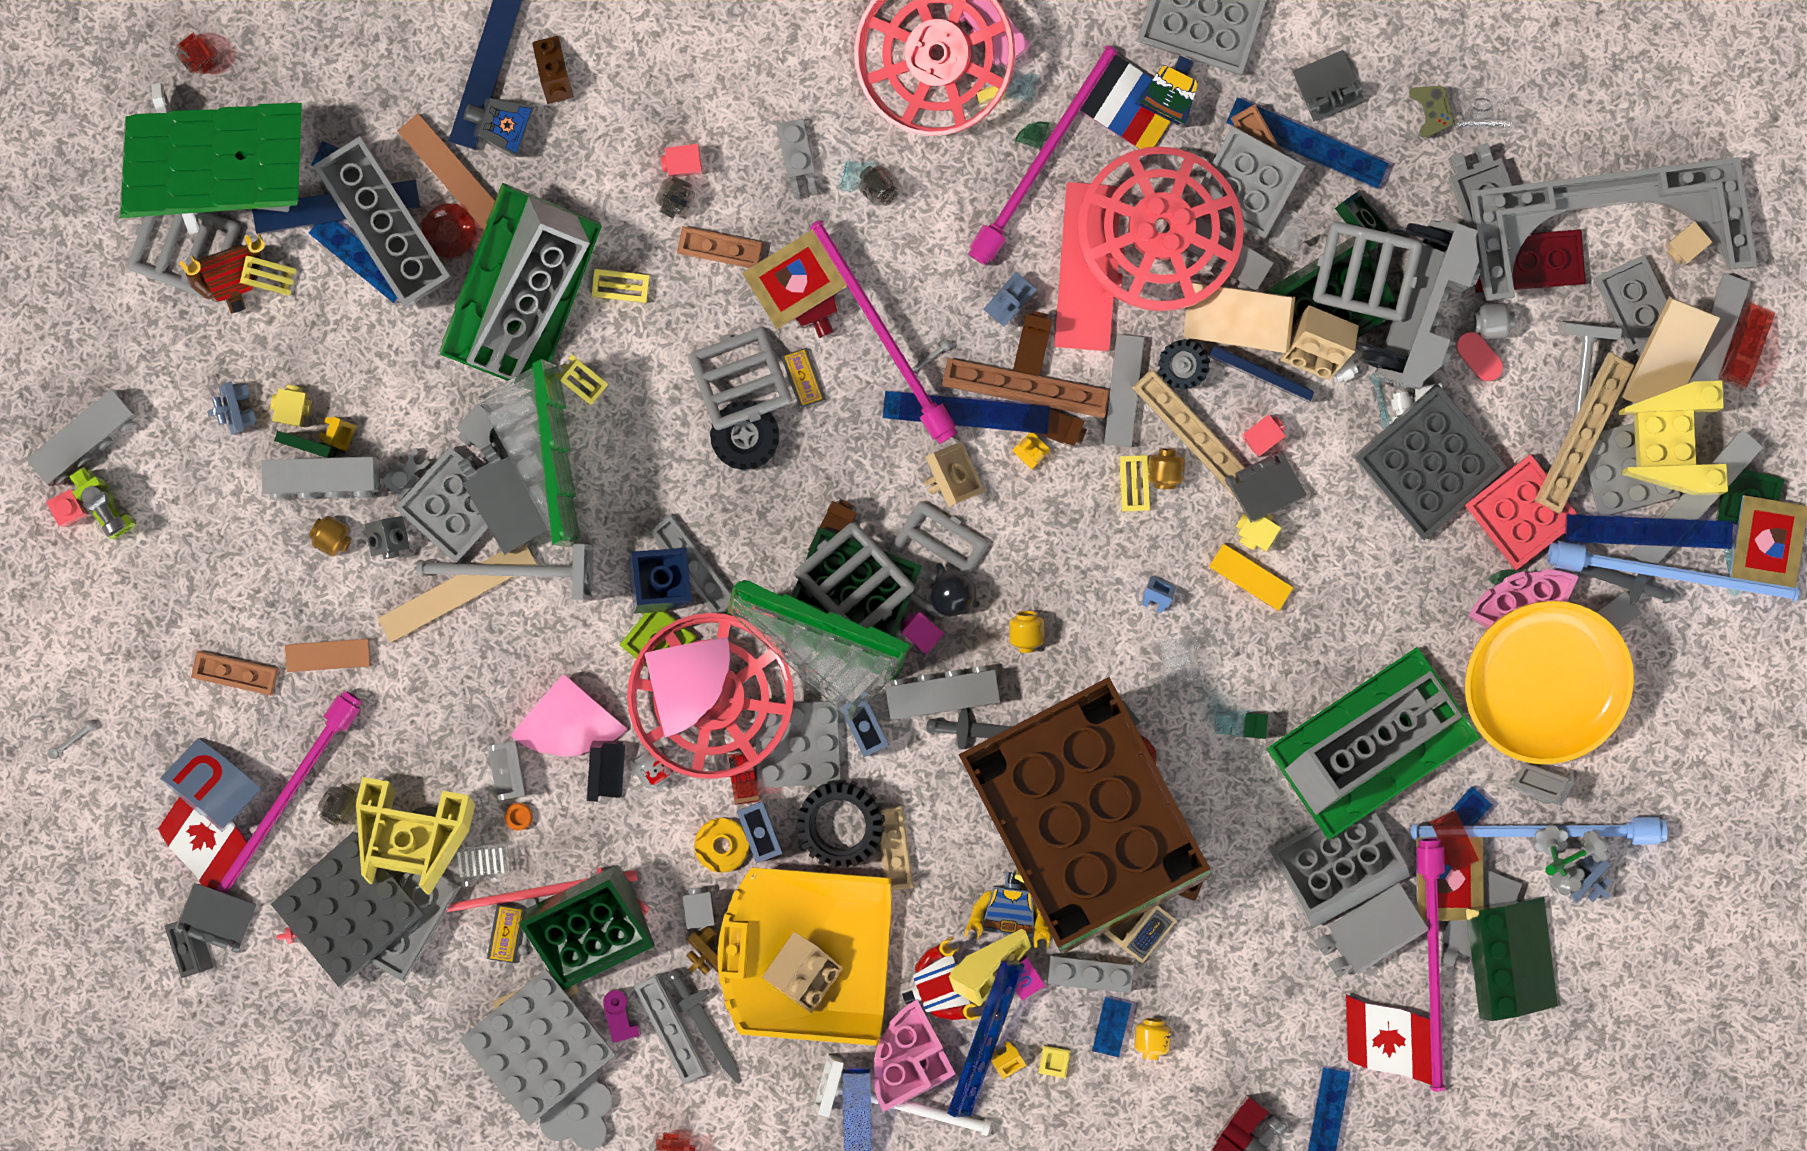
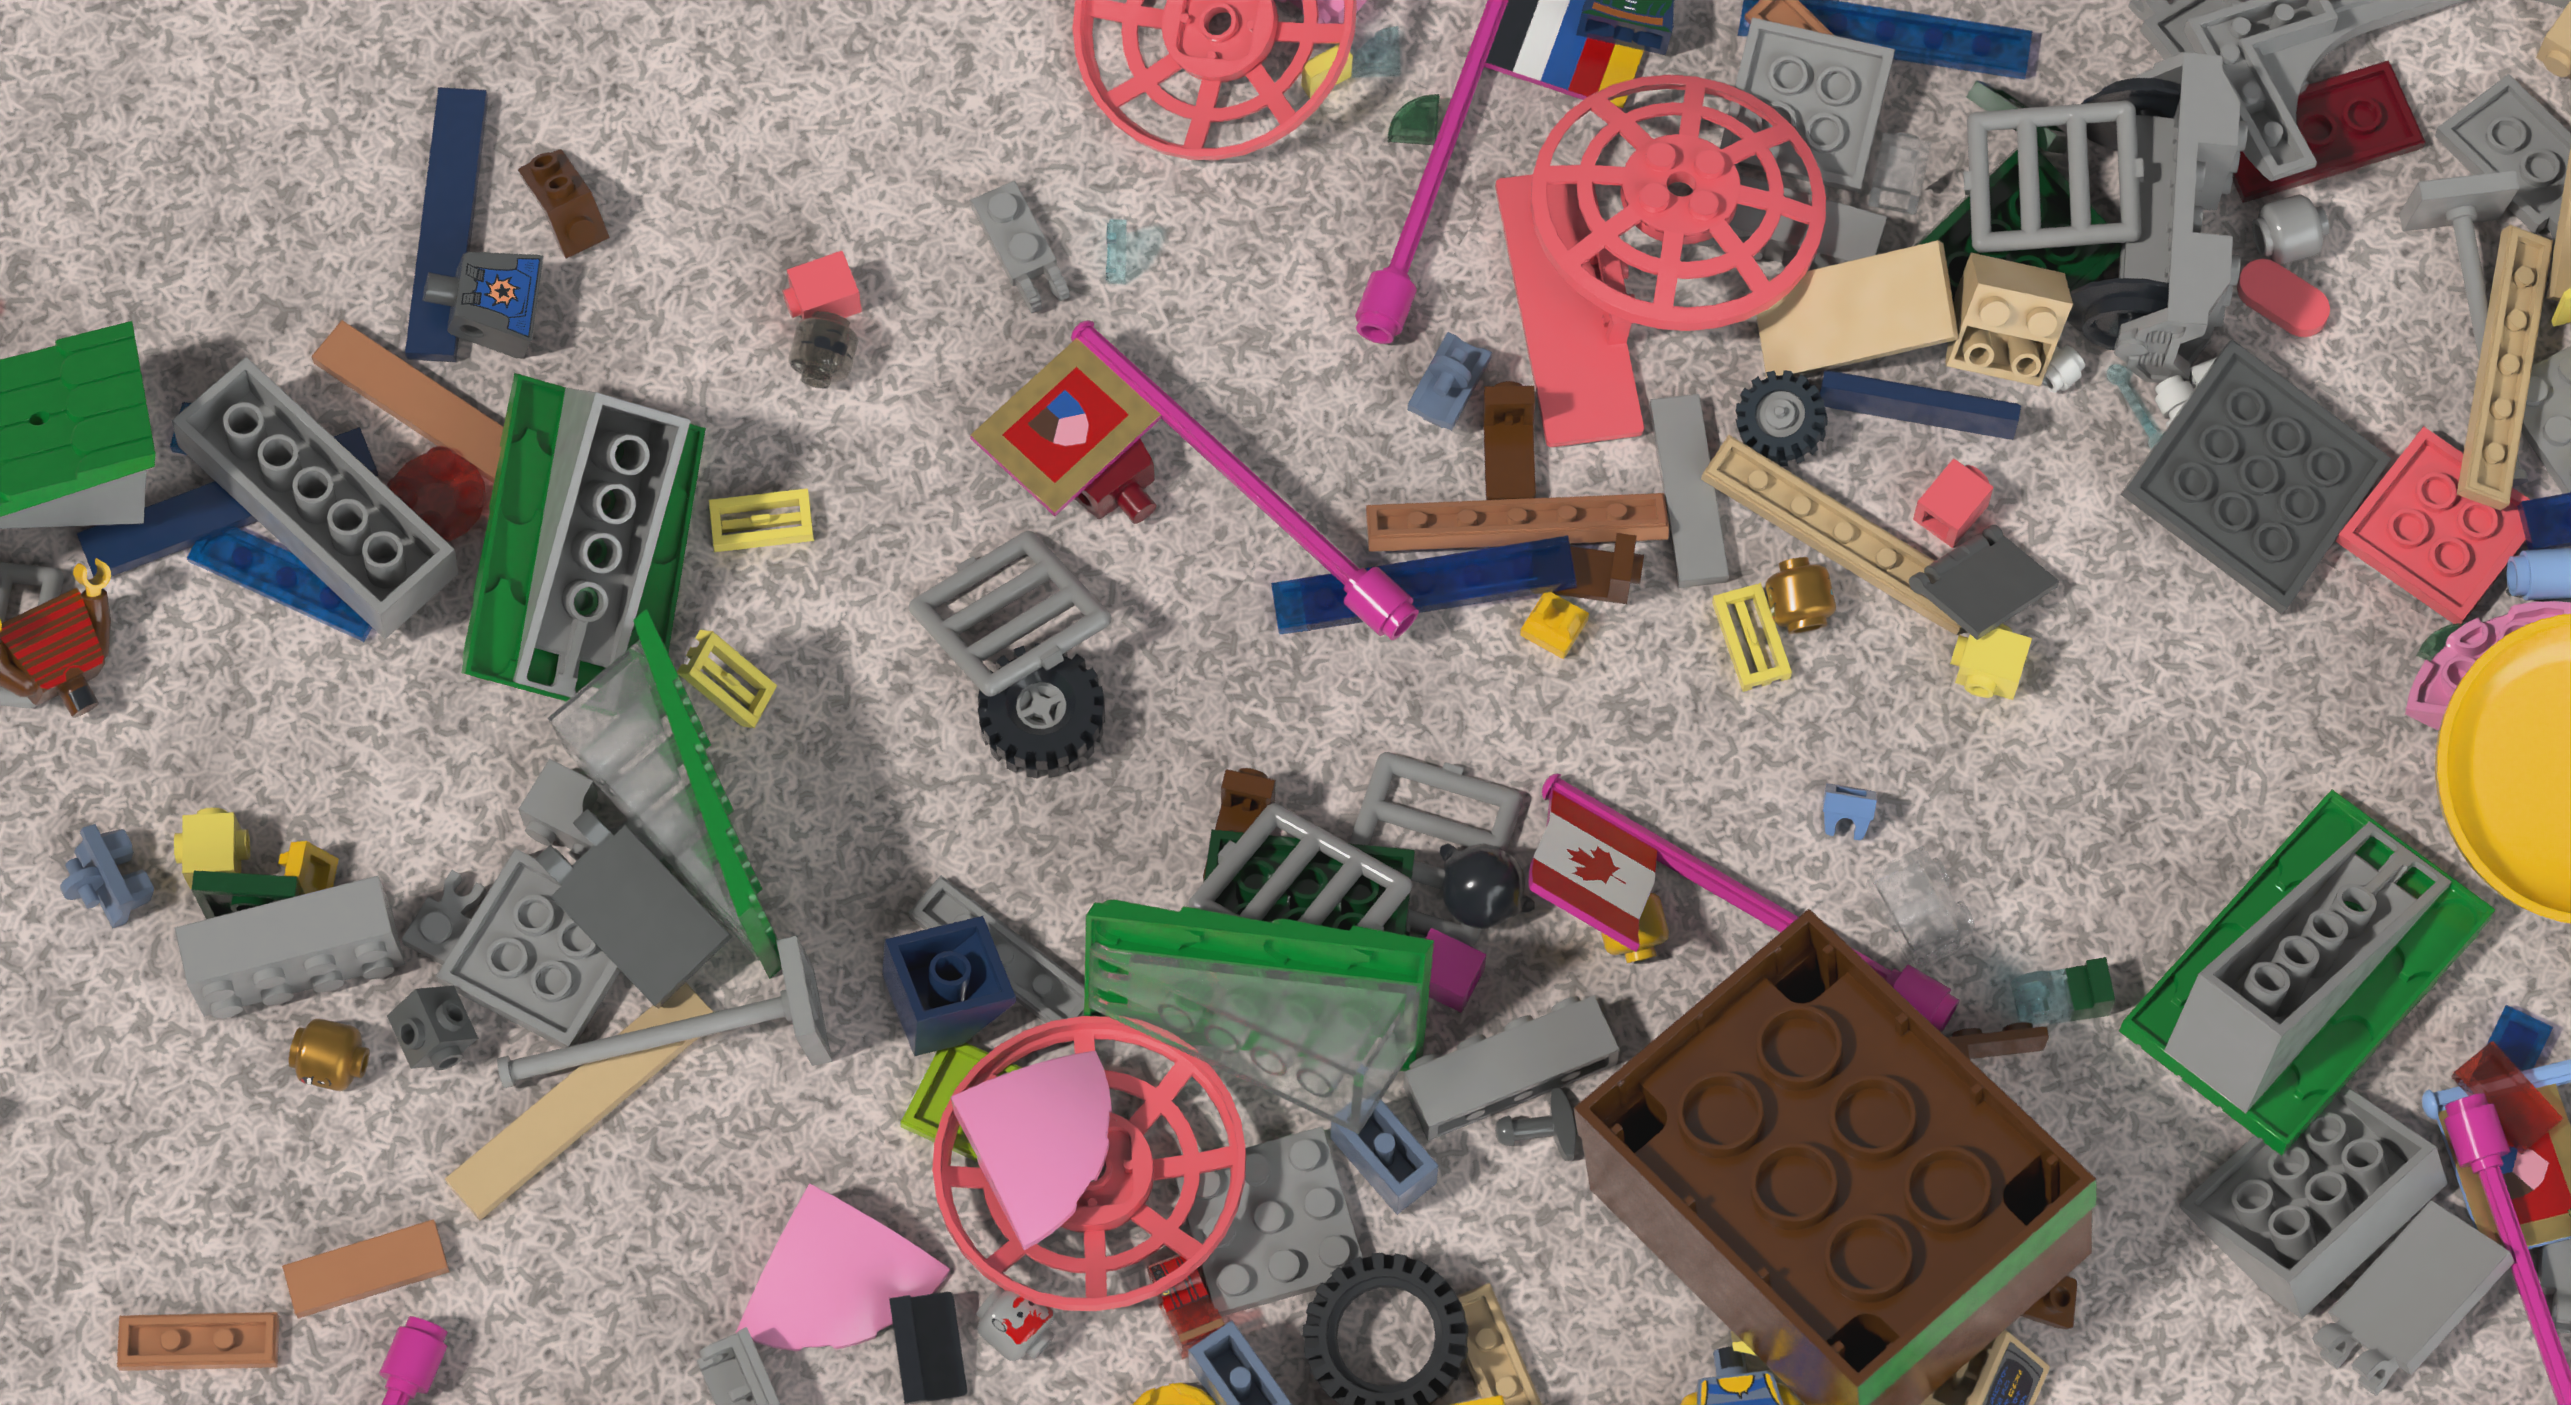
camera: 15 degrees left, 20 degrees down
(286, 279) = (160, 639): light yellow tile -> none
(719, 247) = (917, 419): nougat tile -> none
(803, 377) = (1117, 588): slope -> none
(879, 185) = (1173, 253): clear smoke head -> none
(945, 345) = (1357, 488): light grey hinge -> none
(953, 474) = (1428, 686): tan tile -> none
(1015, 603) = (1606, 866): none -> flag
(1172, 755) = (2013, 1039): none -> reddish brown bracket
(1250, 577) = (2002, 745): yellow tile -> none

